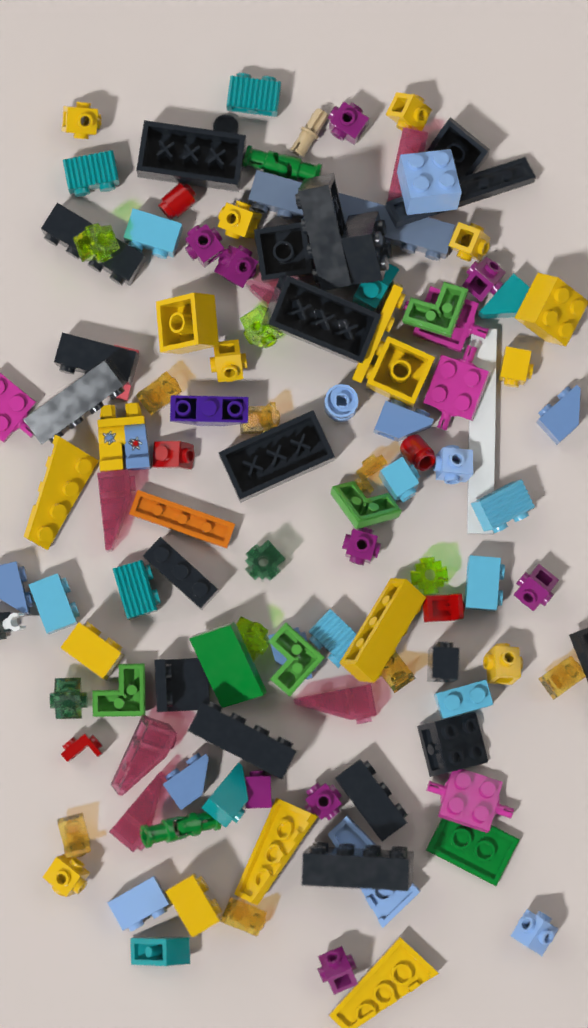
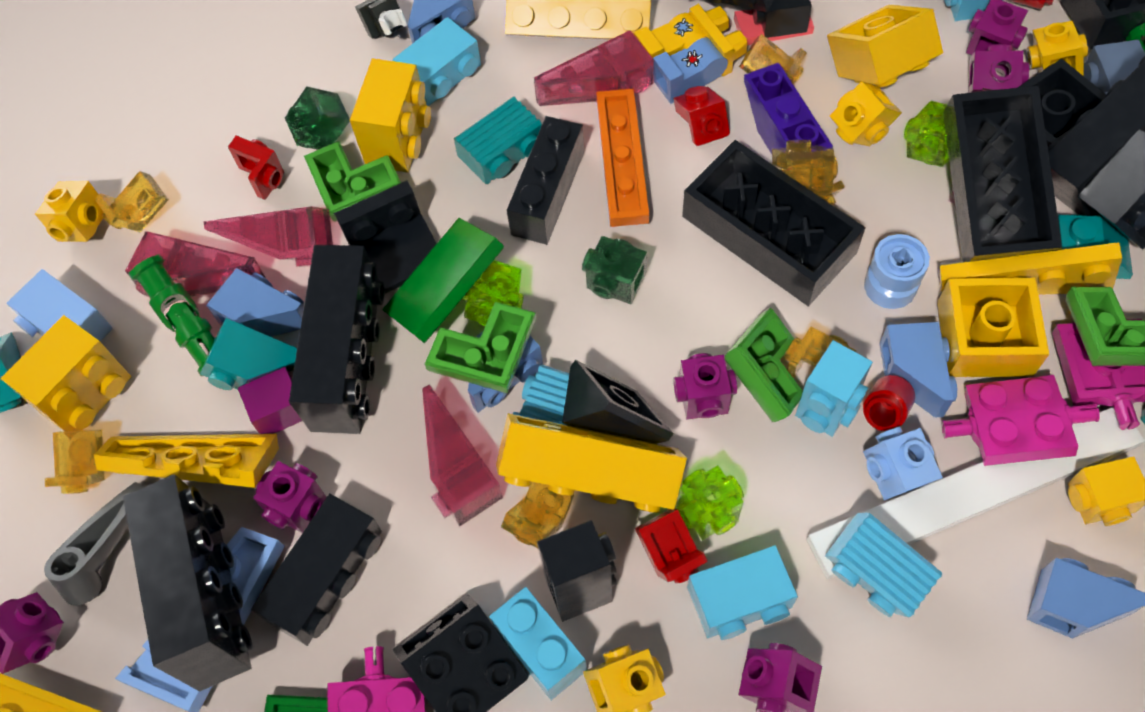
camera: 75 degrees right, 20 degrees down
(255, 421) = (801, 155): none -> clear yellow bracket
(301, 918) = (77, 561): none -> dark grey piece
(353, 603) = (610, 407): none -> black slope

